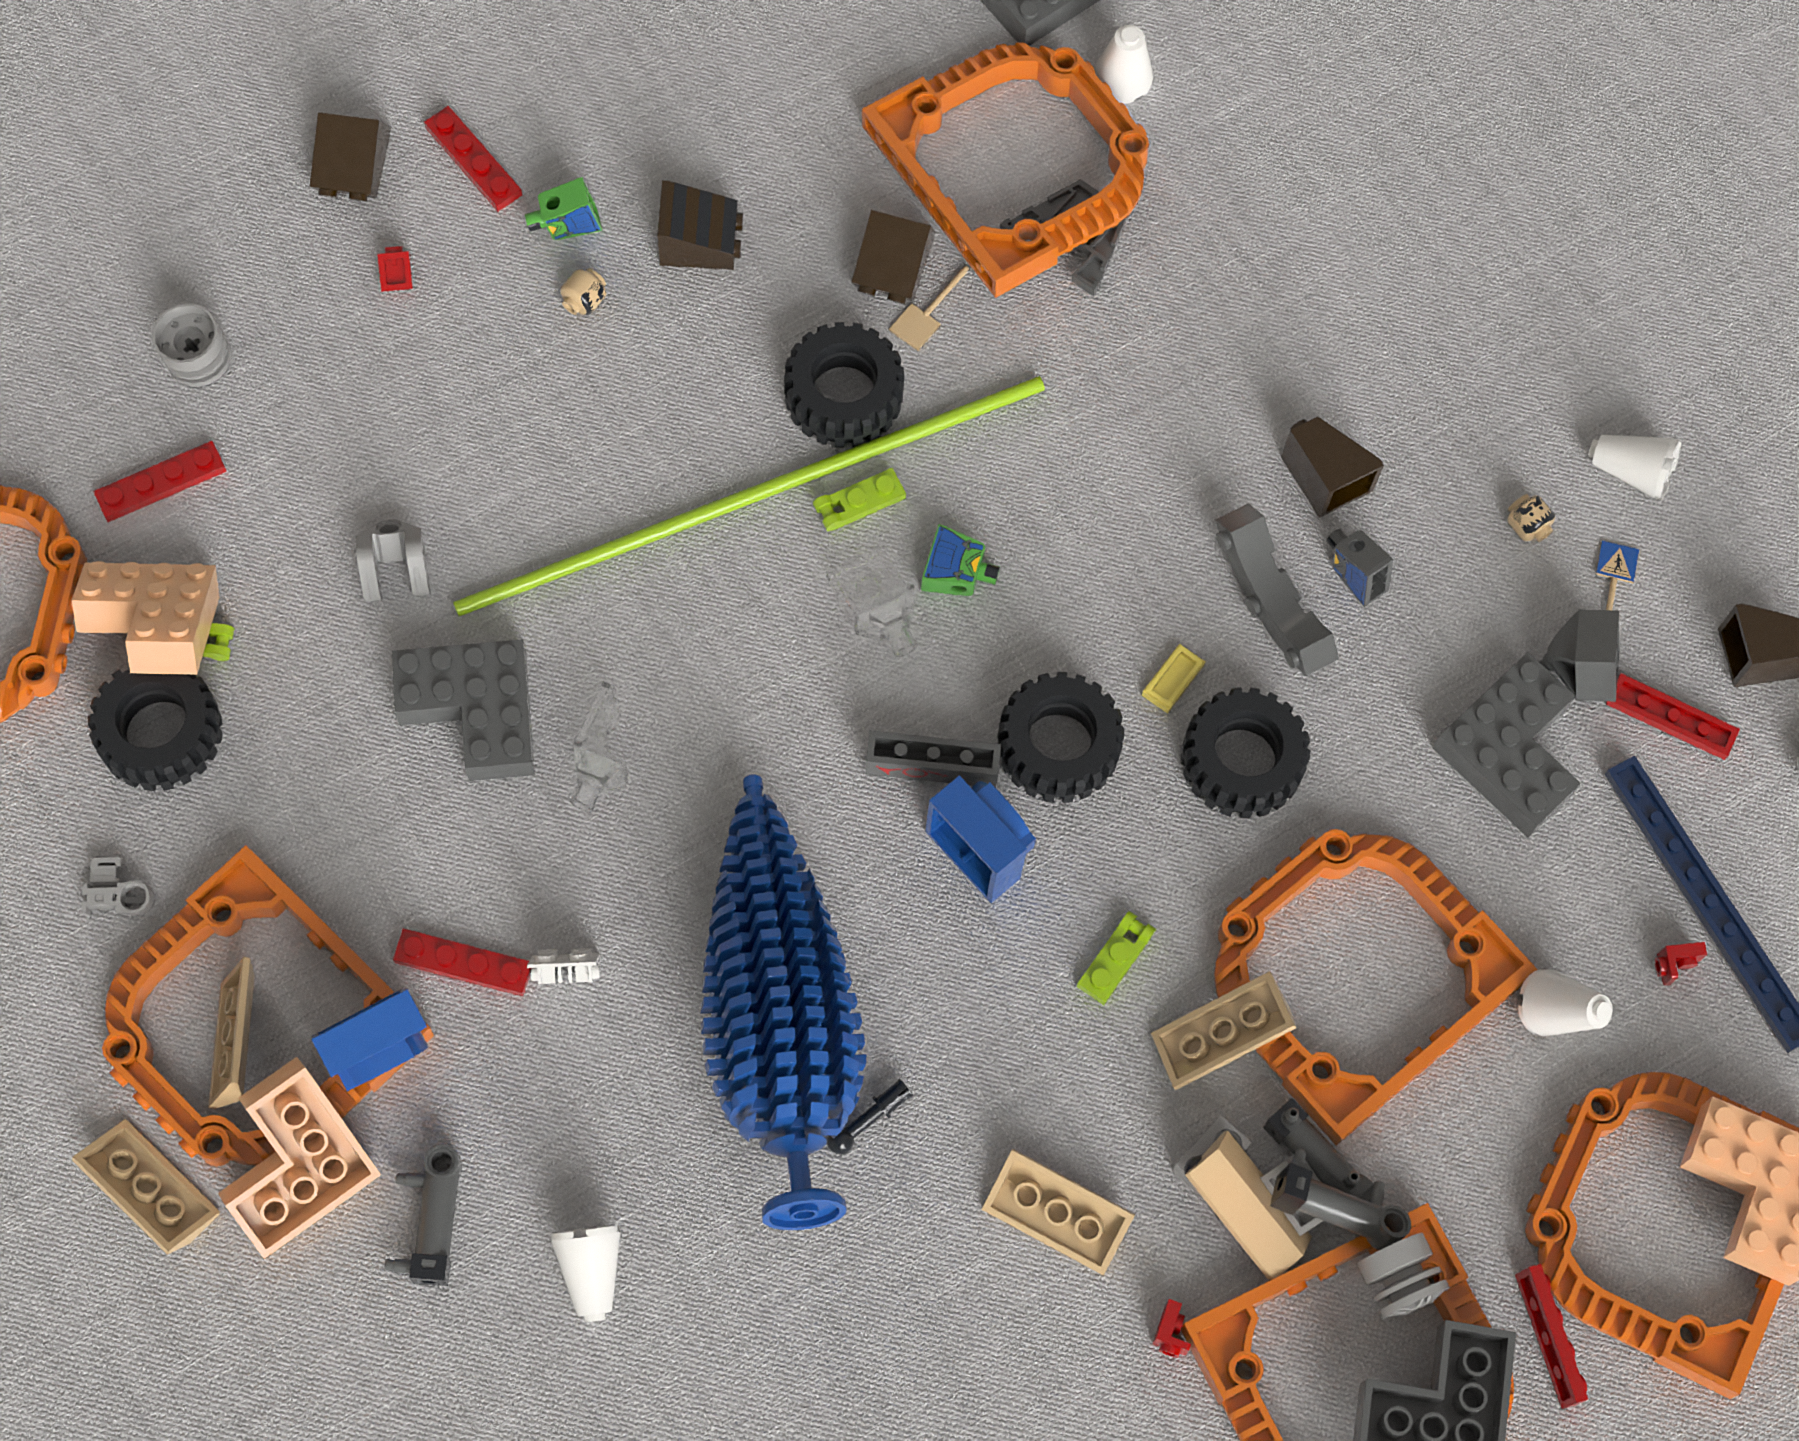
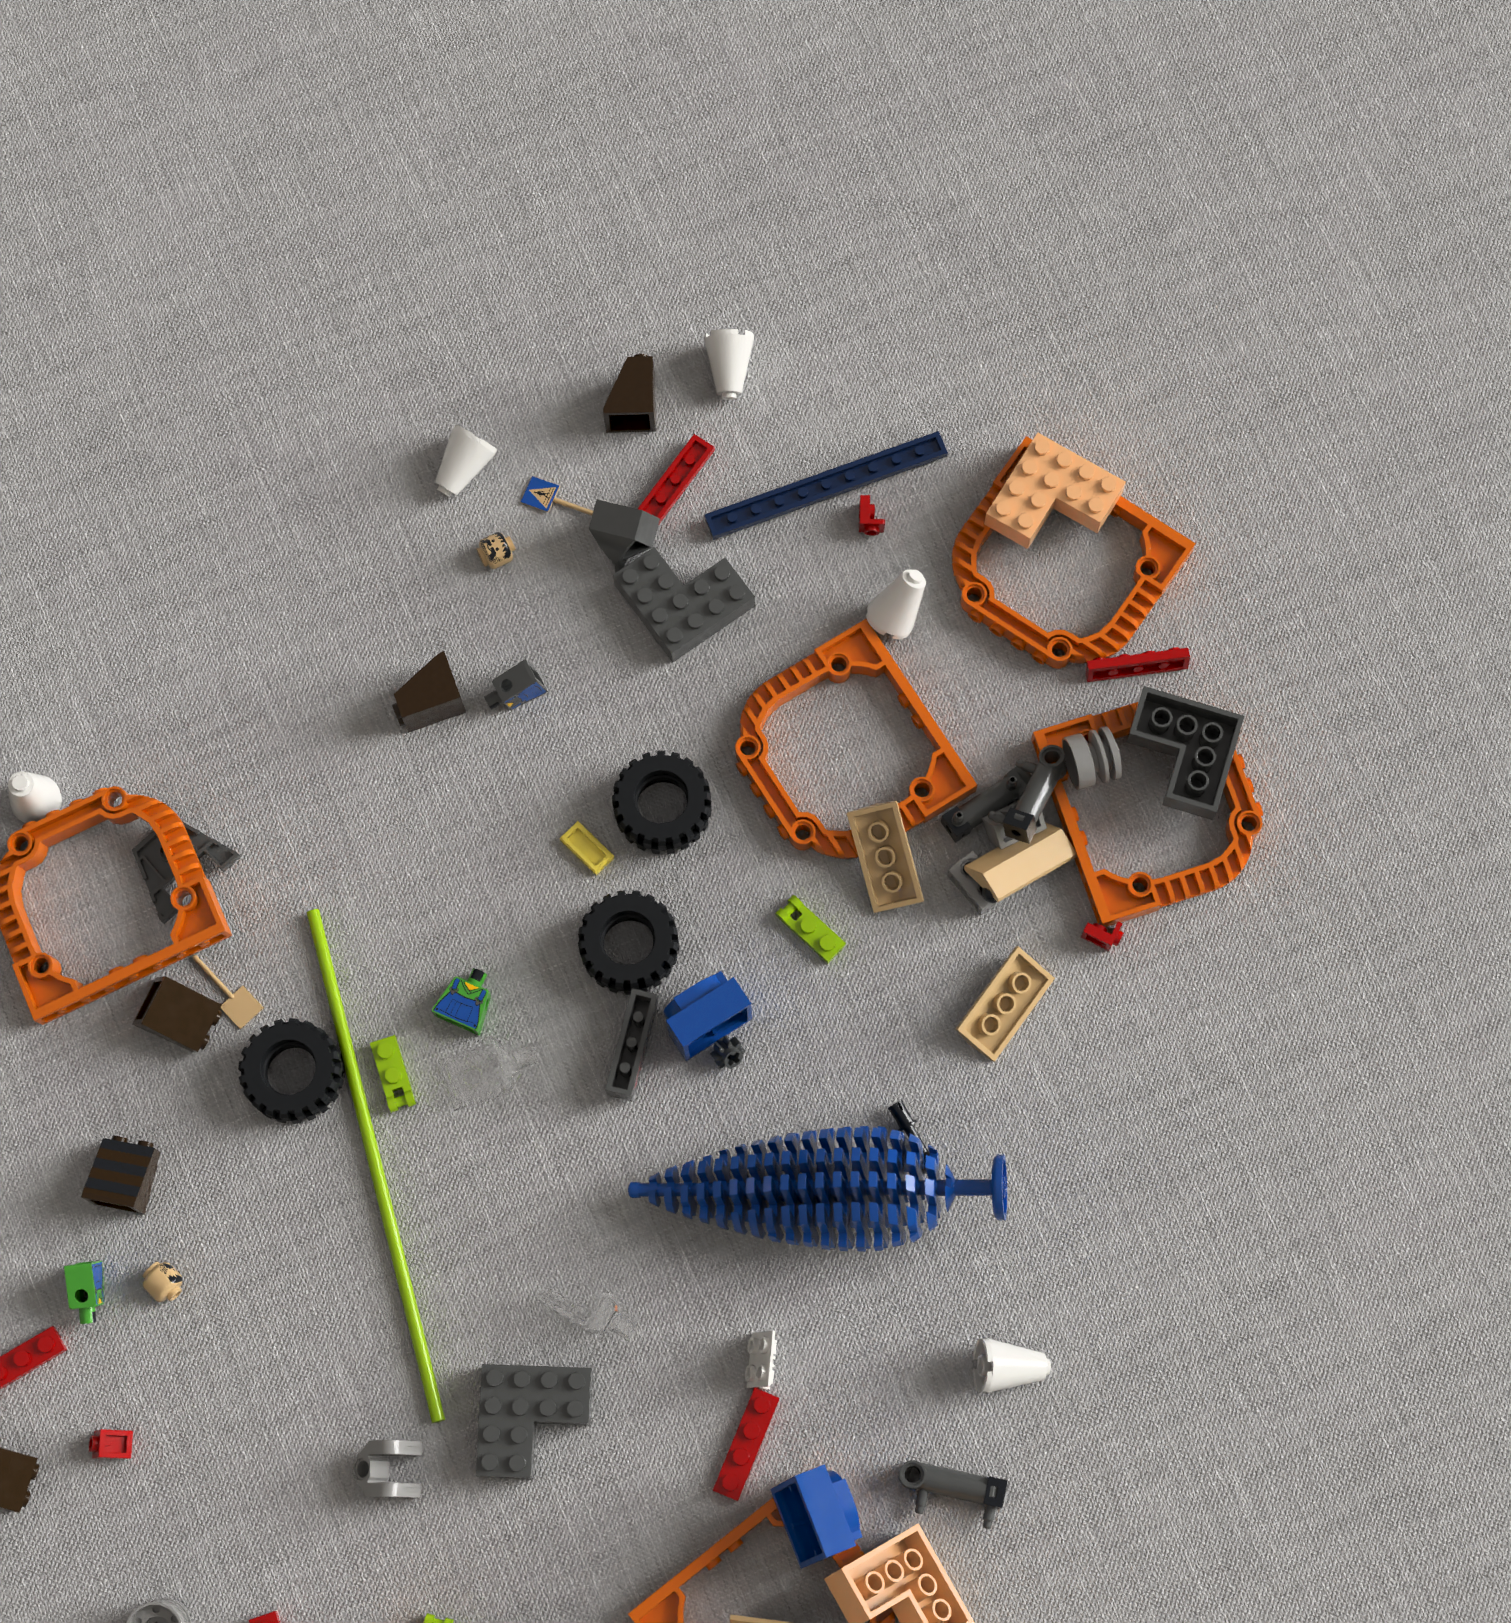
camera: 75 degrees left, 5 degrees up
(941, 874) = (727, 1052): none -> dark grey gear
(1271, 592) = (531, 758): dark grey brick -> none

